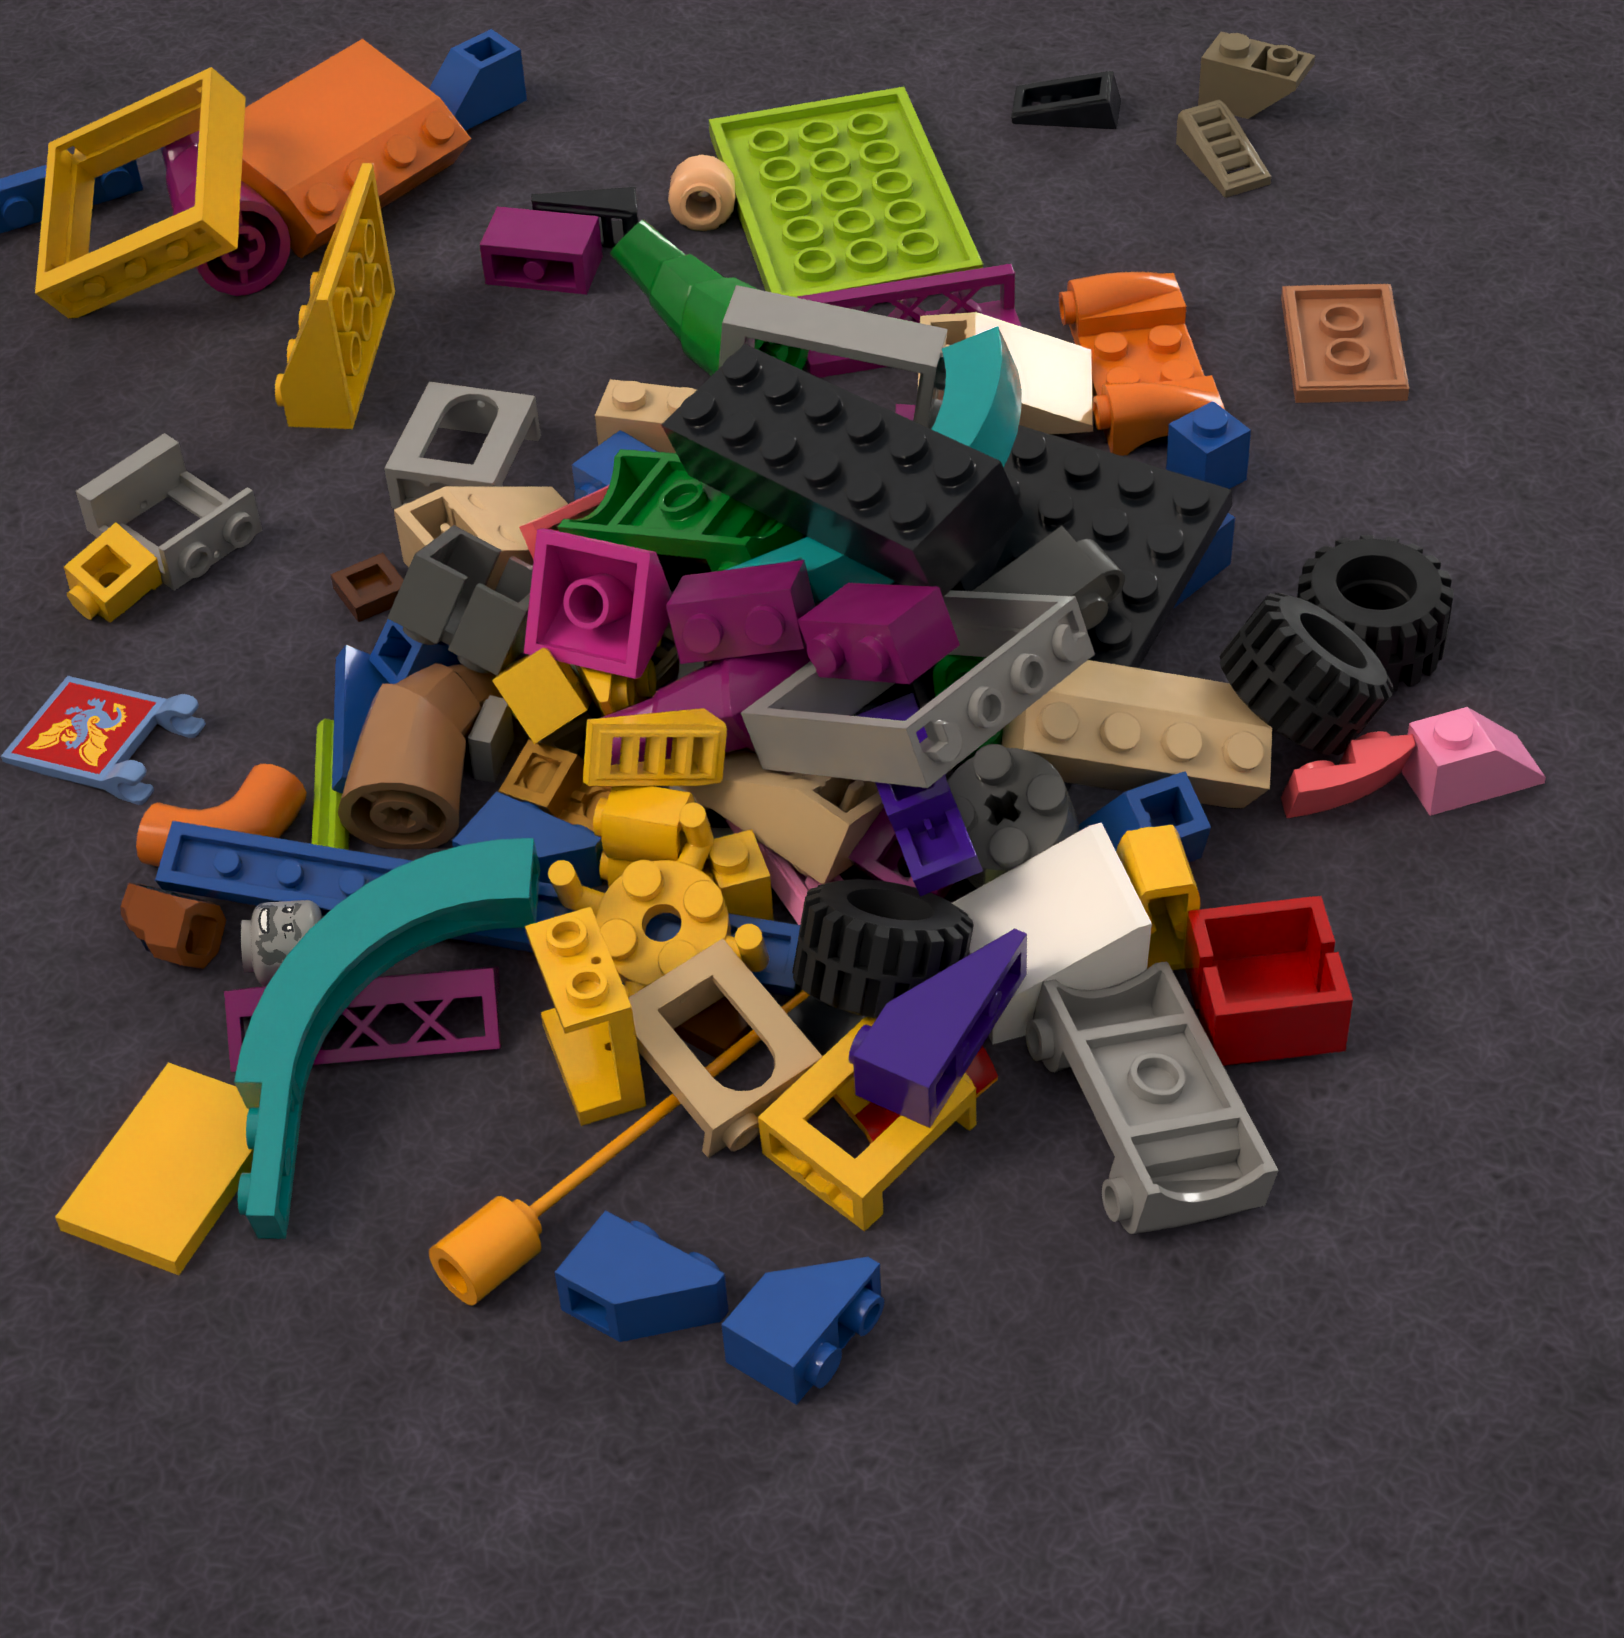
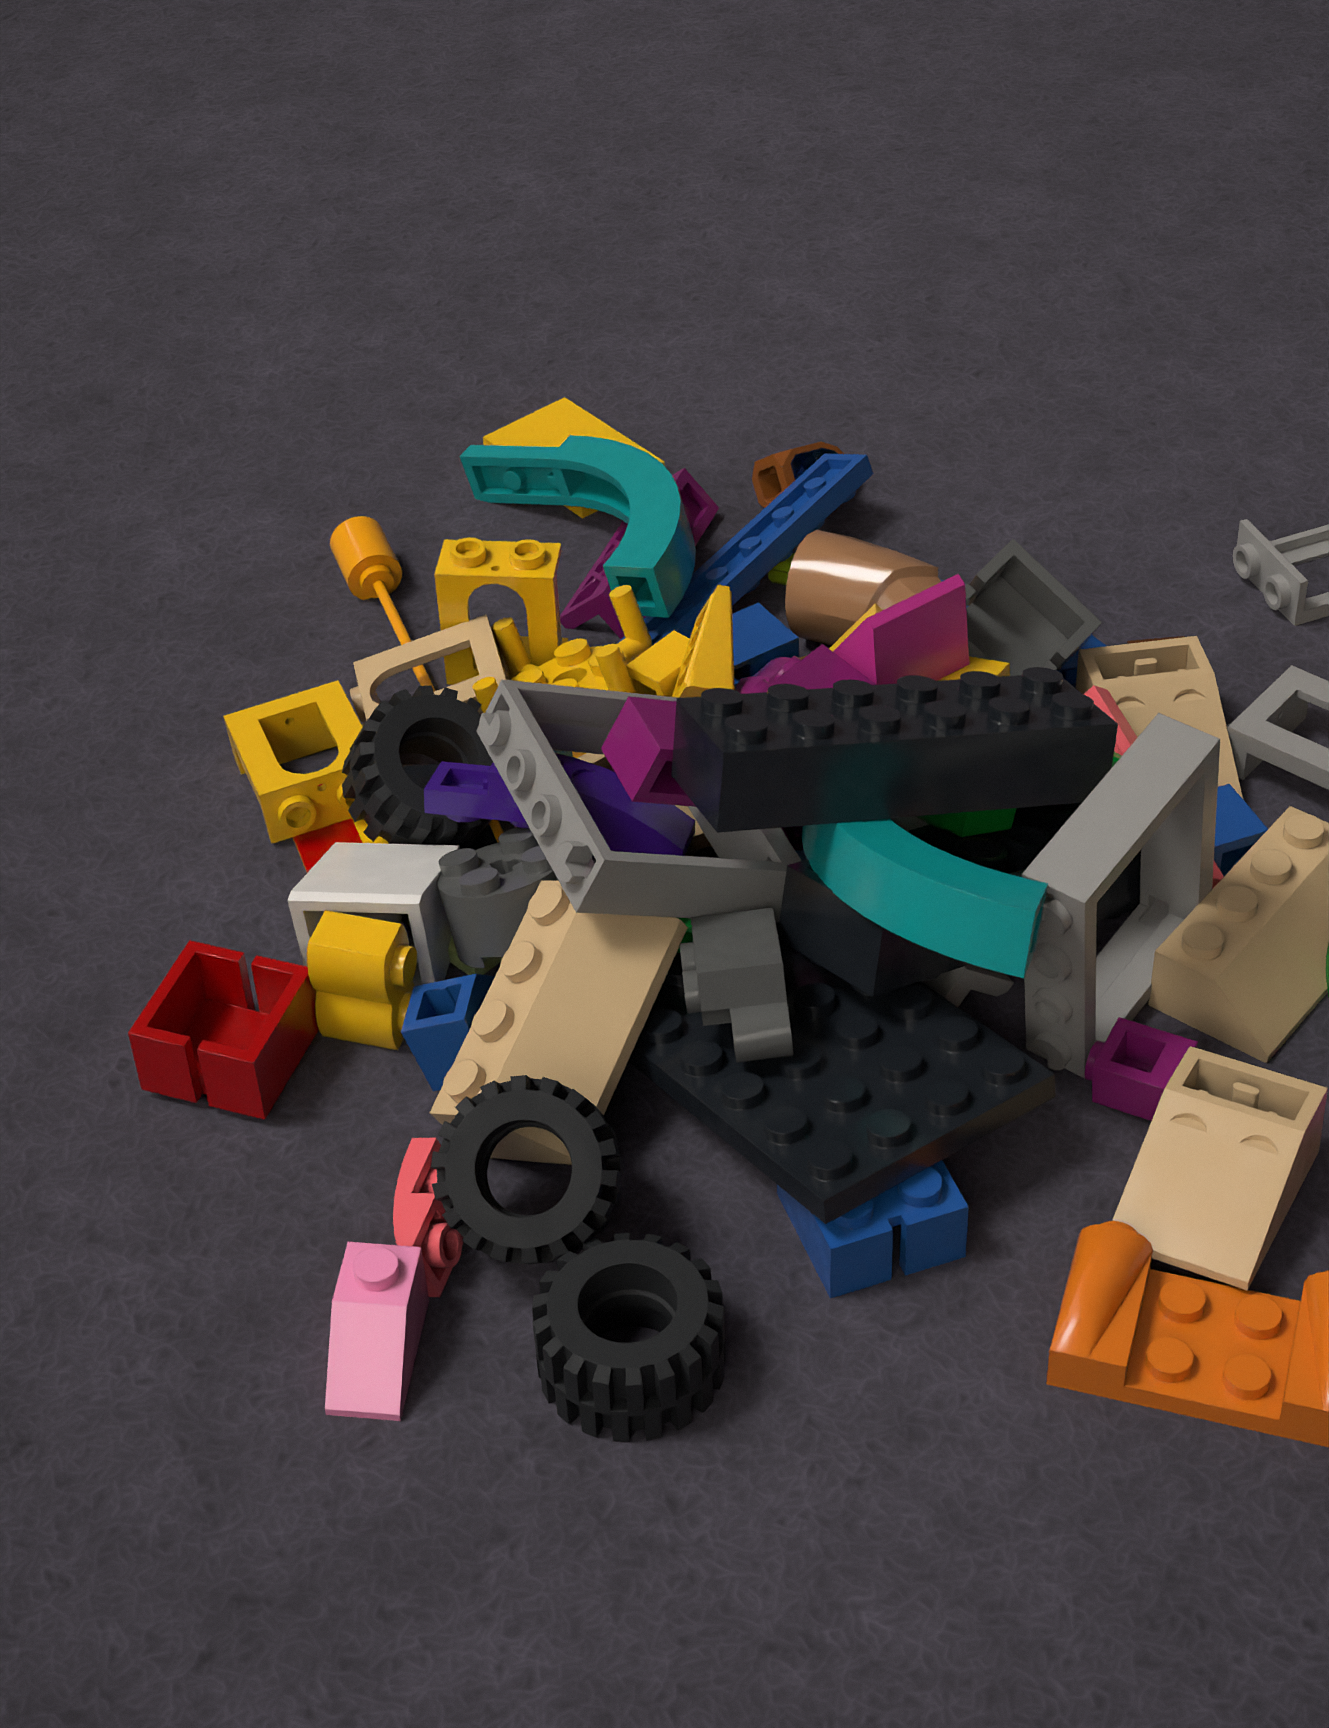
camera: 115 degrees right, 5 degrees down
(92, 732) = (1061, 487): flag -> none
(116, 560) = (1251, 497): yellow brick -> none
(262, 806) = (884, 508): orange cylinder -> none
(274, 933) = (722, 514): light grey head -> none
(637, 1284) = (274, 617): blue slope -> none
(799, 1321) = (168, 680): blue slope -> none
(935, 1030) = (297, 753): dark purple slope -> none
(1159, 1098) = (148, 903): light grey piece -> none
(1209, 446) = (994, 1314): blue brick -> none
(1344, 343) = (1175, 1596): nougat tile -> none

